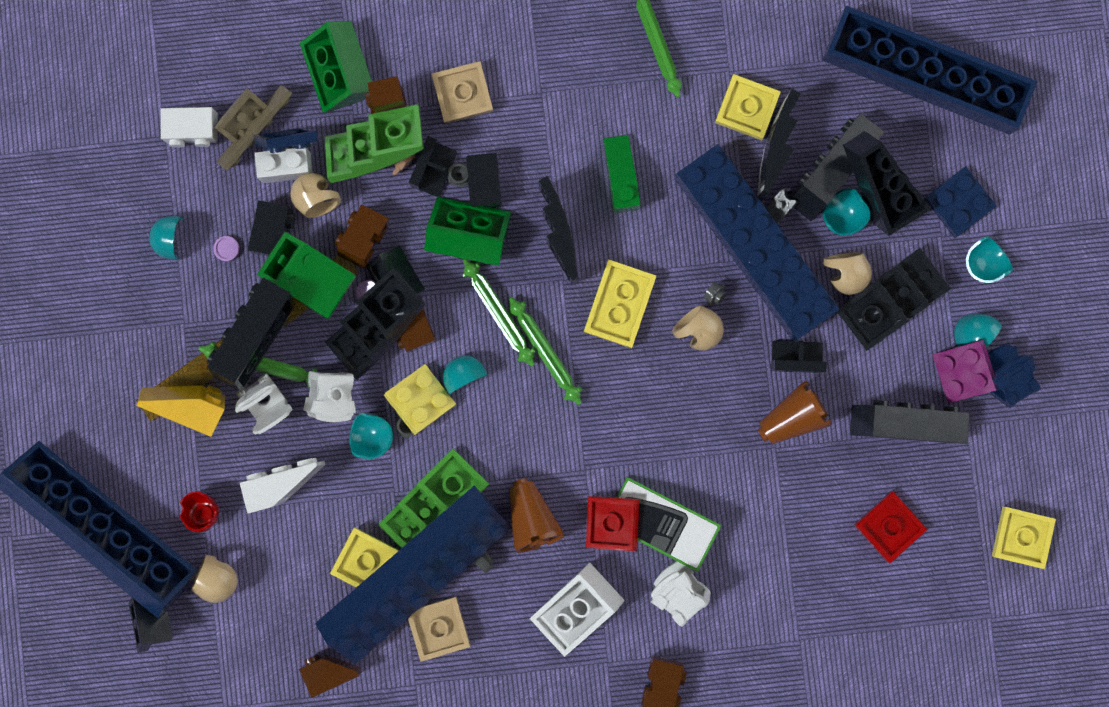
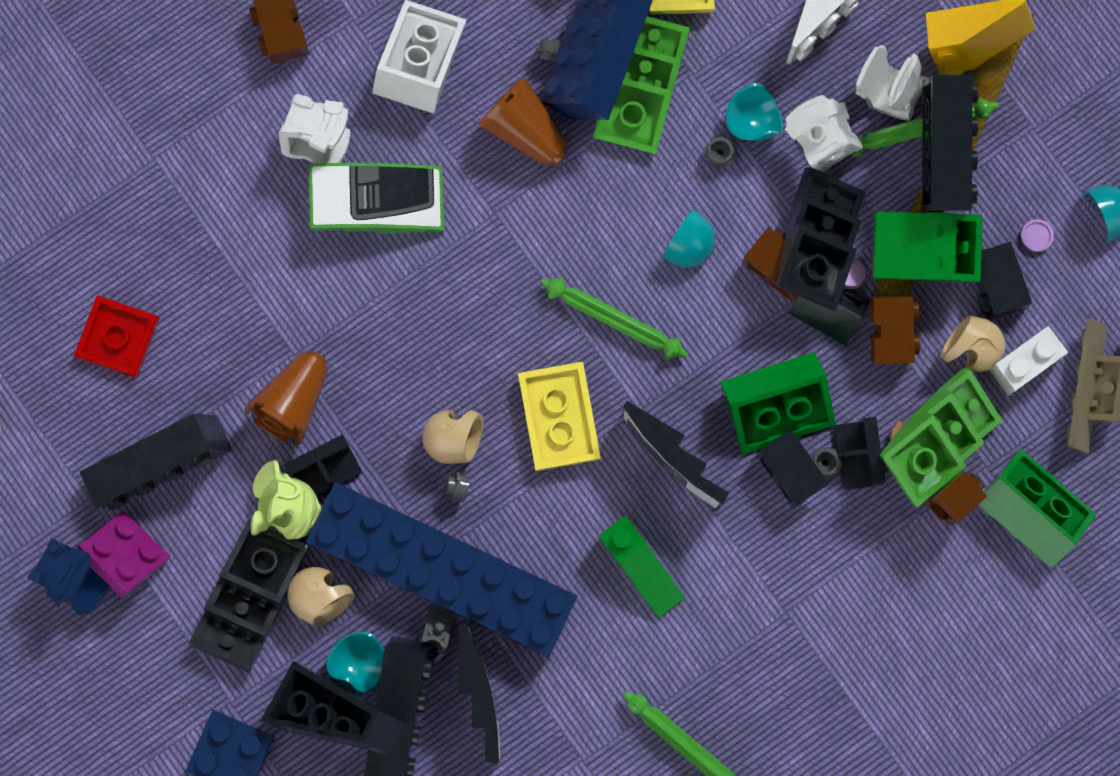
camera: 150 degrees right, 5 degrees down
(277, 141) = (1042, 387): dark blue plate -> none
(419, 399) = (722, 186): light yellow plate -> none
(462, 92) = (876, 558): tan plate -> none
(498, 312) = (690, 332): bright green wheel -> none
(612, 523) = (431, 168): red tile -> none
(747, 107) = (538, 726): light yellow plate -> none
(838, 345) = (283, 503): none -> yellowish green helmet
(976, 327) = (134, 614): teal helmet -> none
(988, 261) = (161, 698): teal helmet -> none

